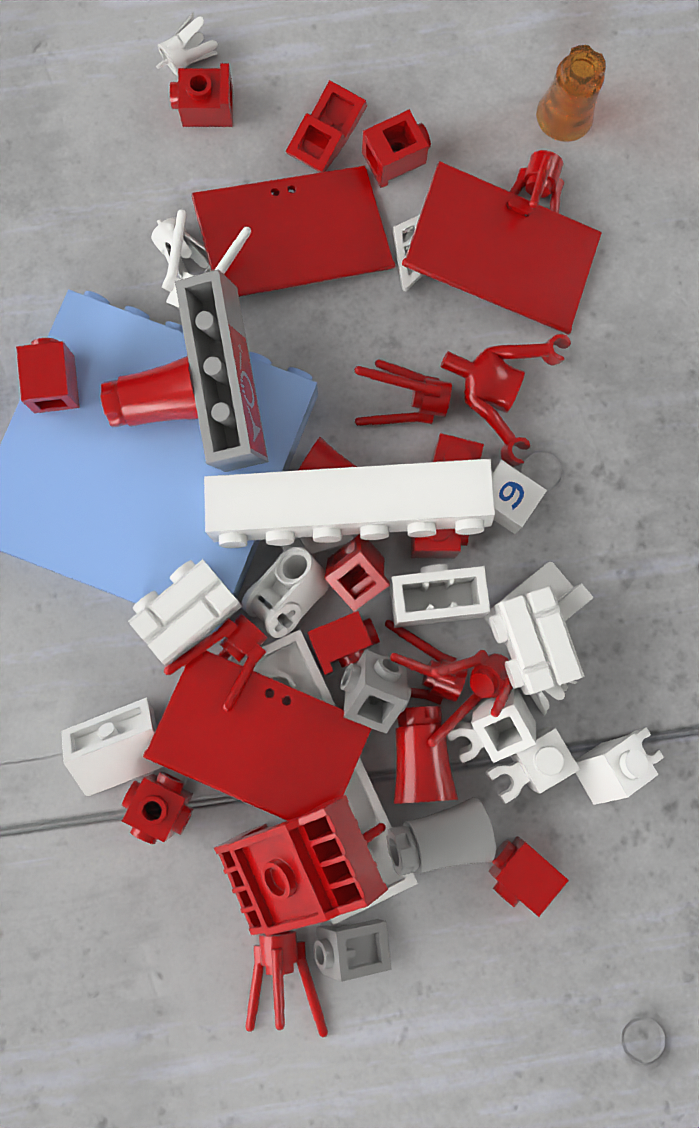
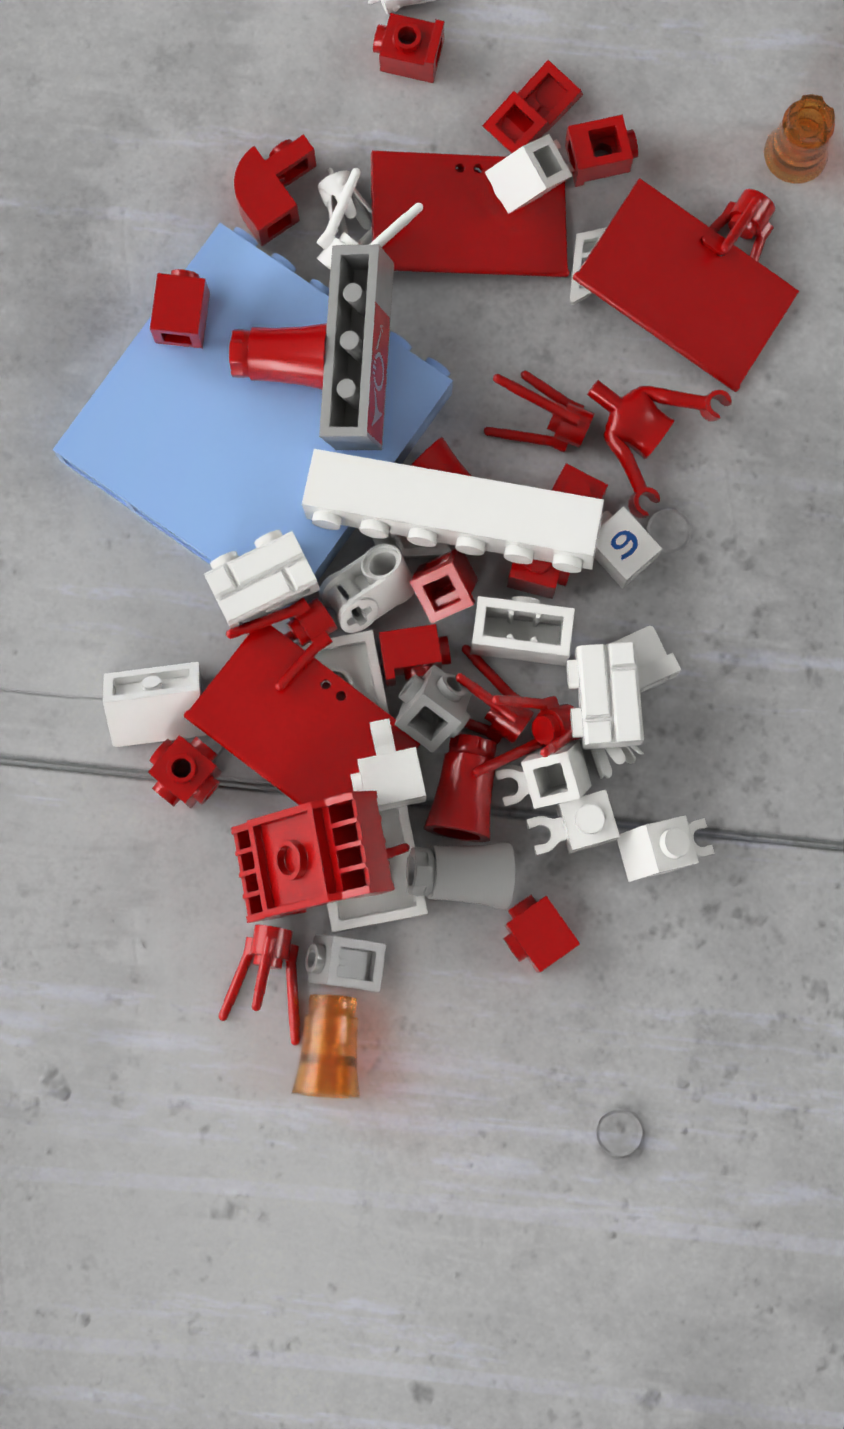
camera: 20 degrees right, 0 degrees up
(102, 248) = (262, 183): none -> red brick
(338, 179) = (529, 173): none -> white brick
(353, 770) = (390, 772): none -> white brick
(358, 1042) = (329, 1049): none -> clear orange plant

